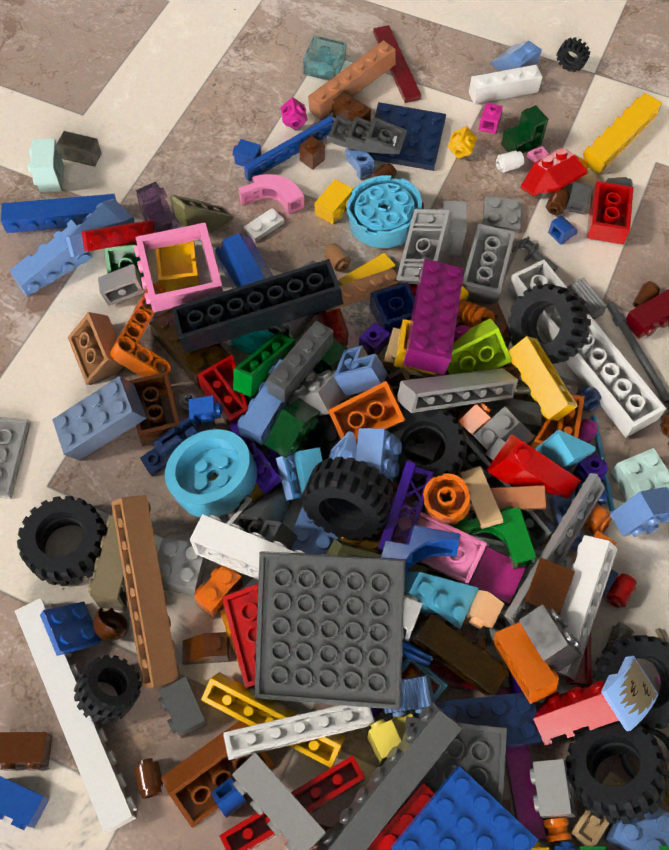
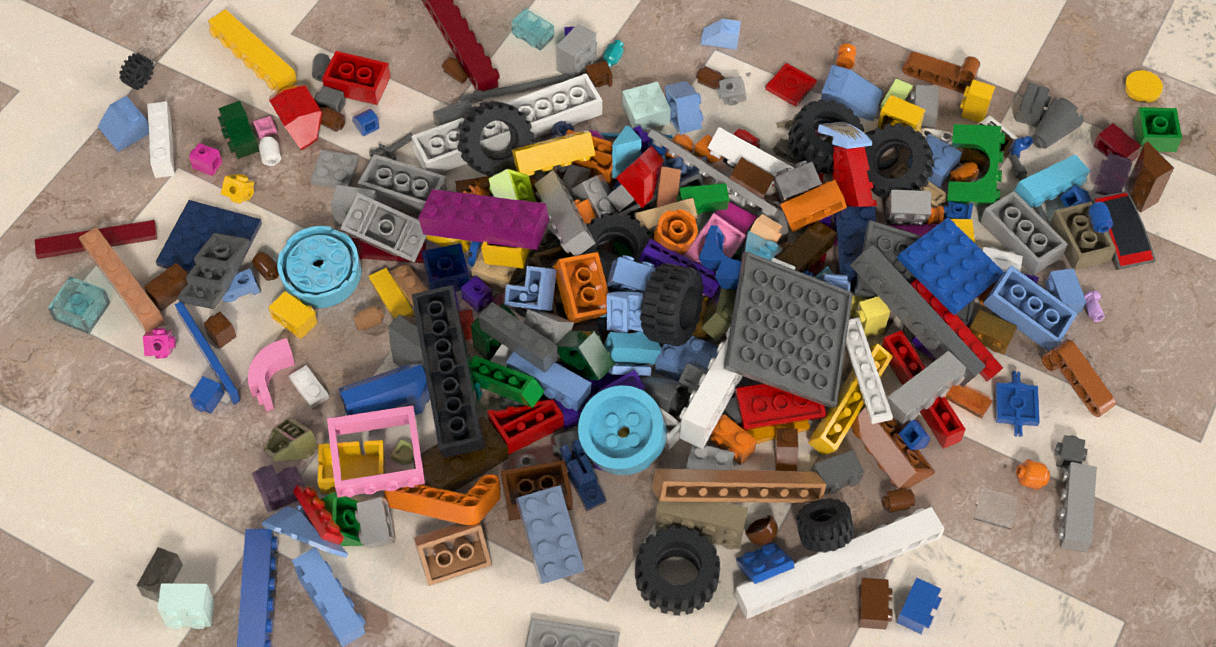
camera: 85 degrees left, 5 degrees down
(204, 409) = (553, 433): blue brick -> none

